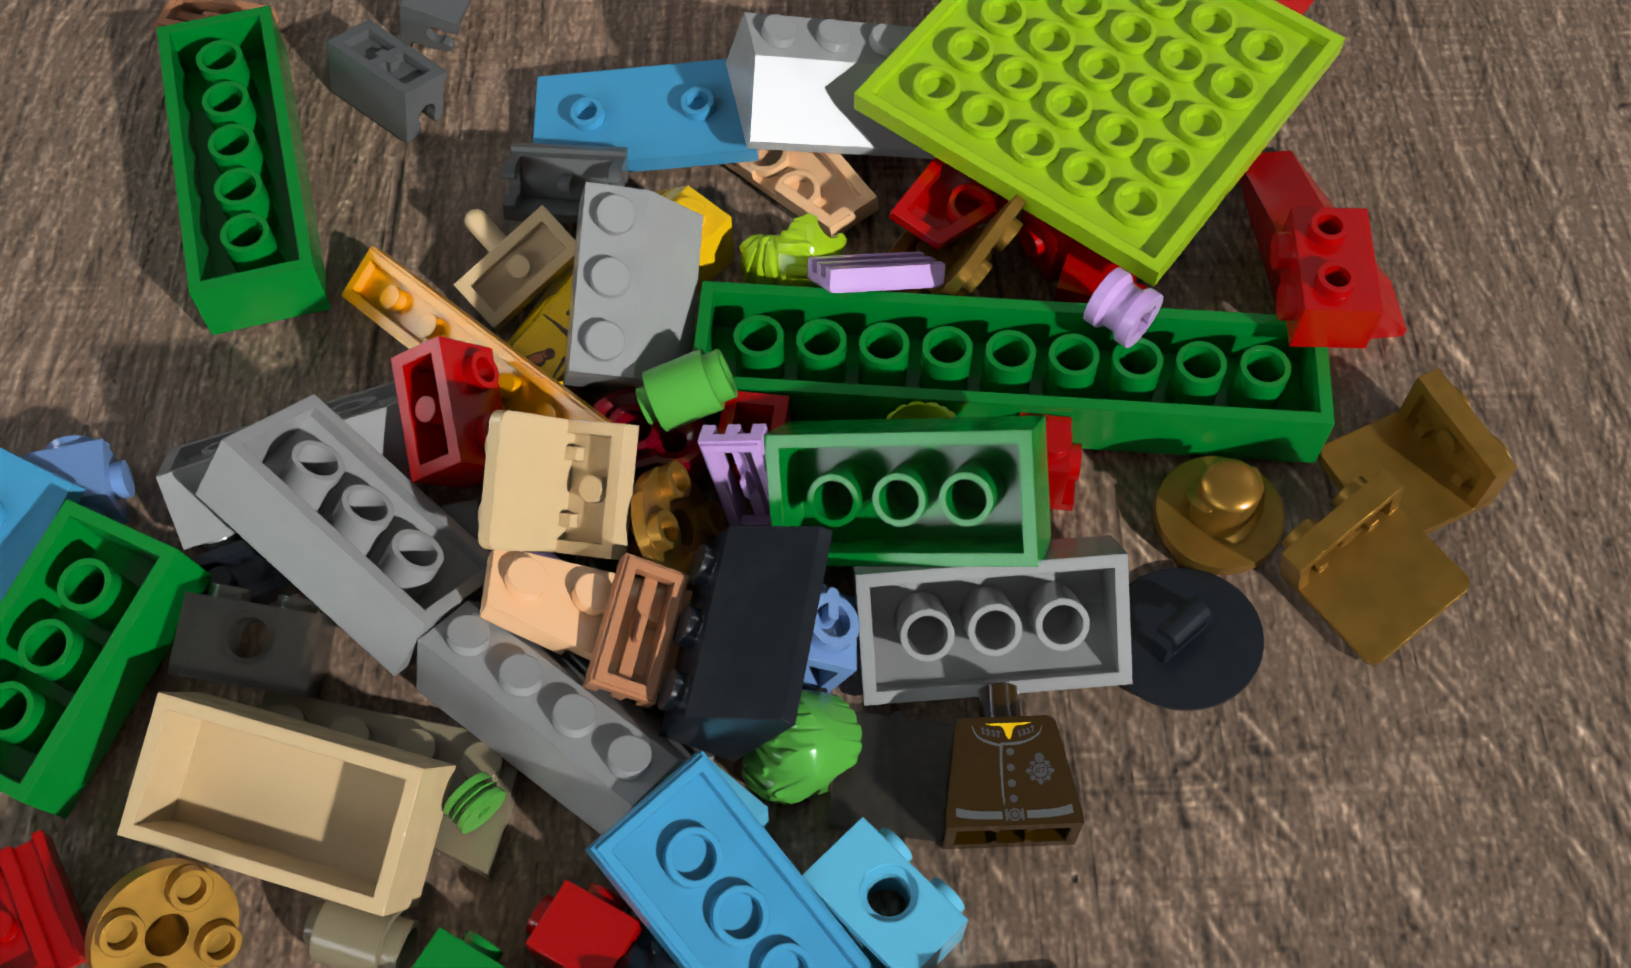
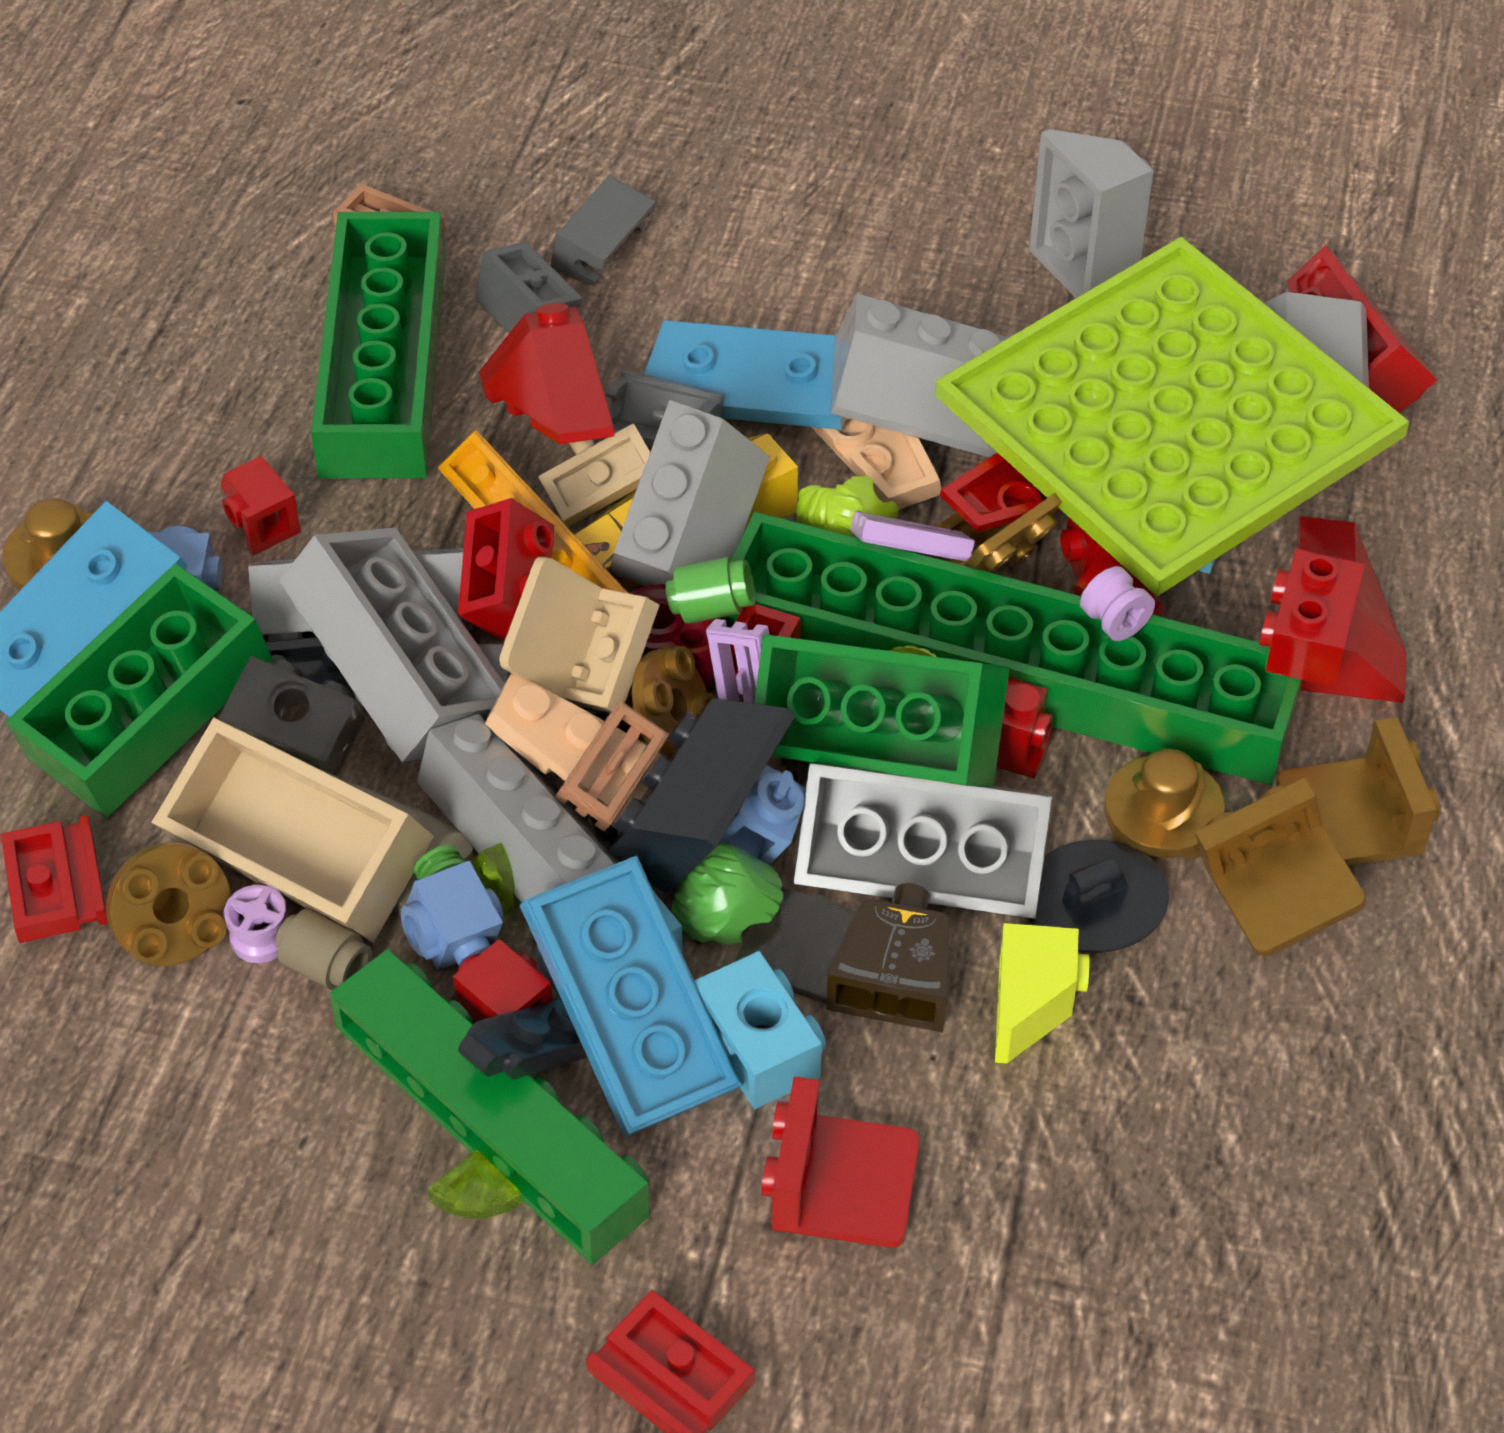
camera: 15 degrees right, 10 degrees down
(153, 385) = (260, 505): none -> red brick
(265, 906) = (248, 911): none -> lavender wheel
(438, 170) = (550, 375): none -> red wedge
(503, 862) = (451, 916): none -> medium blue brick
(535, 799) = (496, 873): none -> clear neon green tile
(1160, 767) = (1036, 984): none -> neon yellow slope

